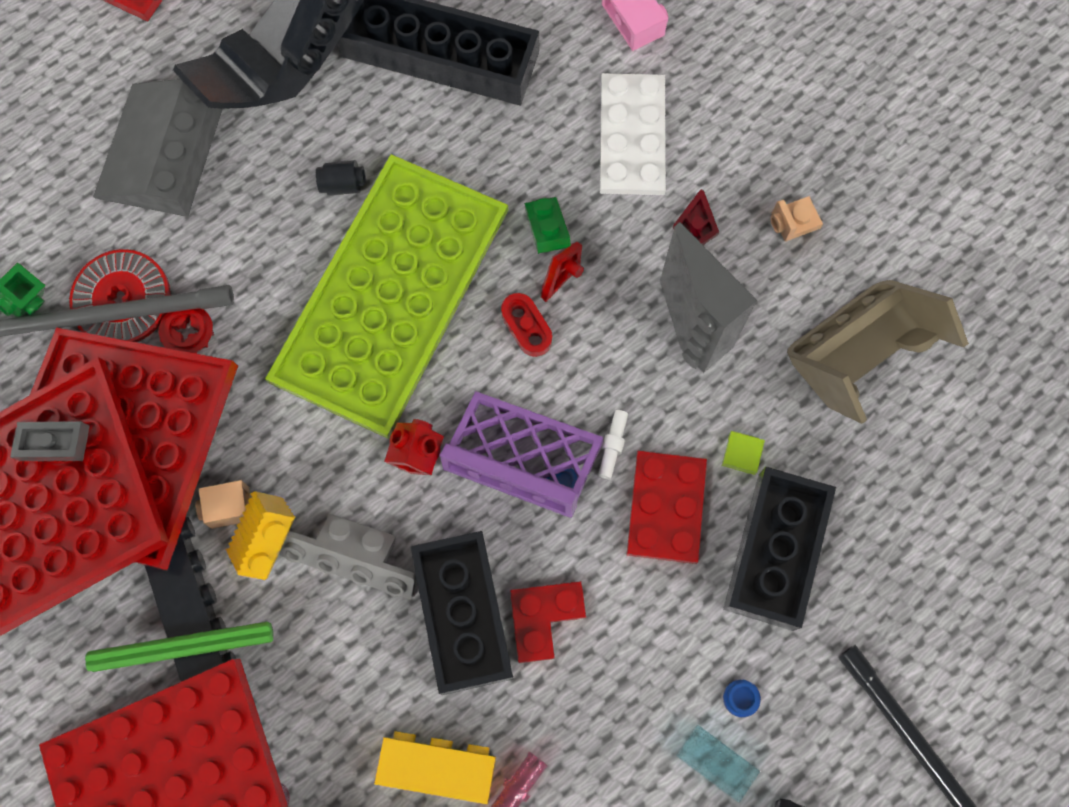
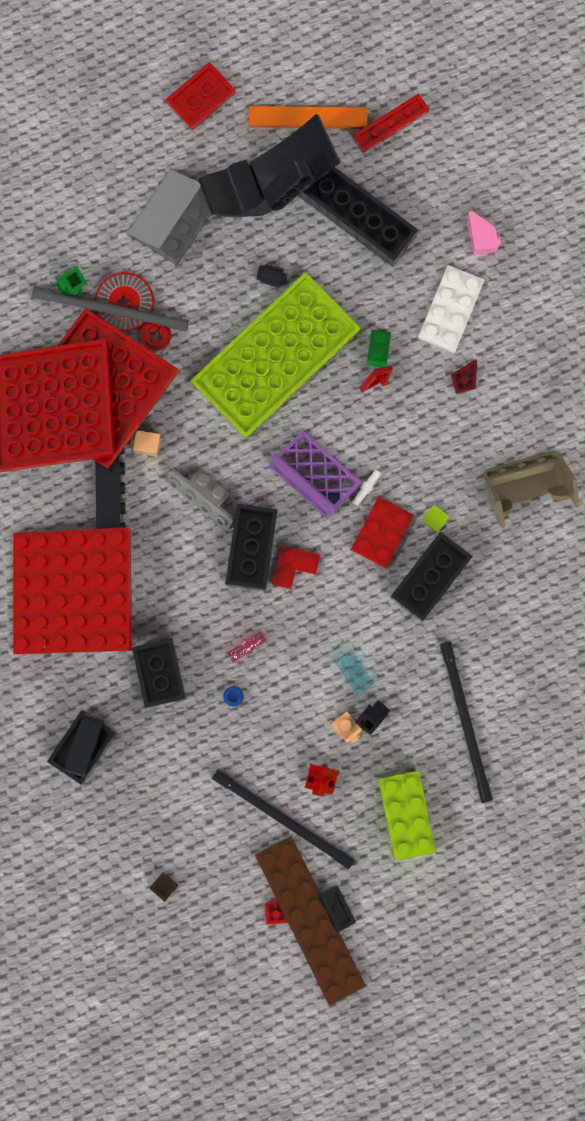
camera: 20 degrees right, 10 degrees up
(50, 441) = (68, 378): dark grey plate -> none
(179, 646) = (102, 510): bright green axle -> none
(260, 535) = (160, 467): yellow brick -> none
(414, 447) = (258, 450): red brick -> none
(436, 768) = (210, 620): yellow brick -> none
(528, 325) = (345, 403): red plate -> none
(703, 300) = (443, 435): dark grey slope -> none
(741, 698) = (380, 645): blue plate -> none
(795, 218) = (523, 396): light nougat bracket -> none

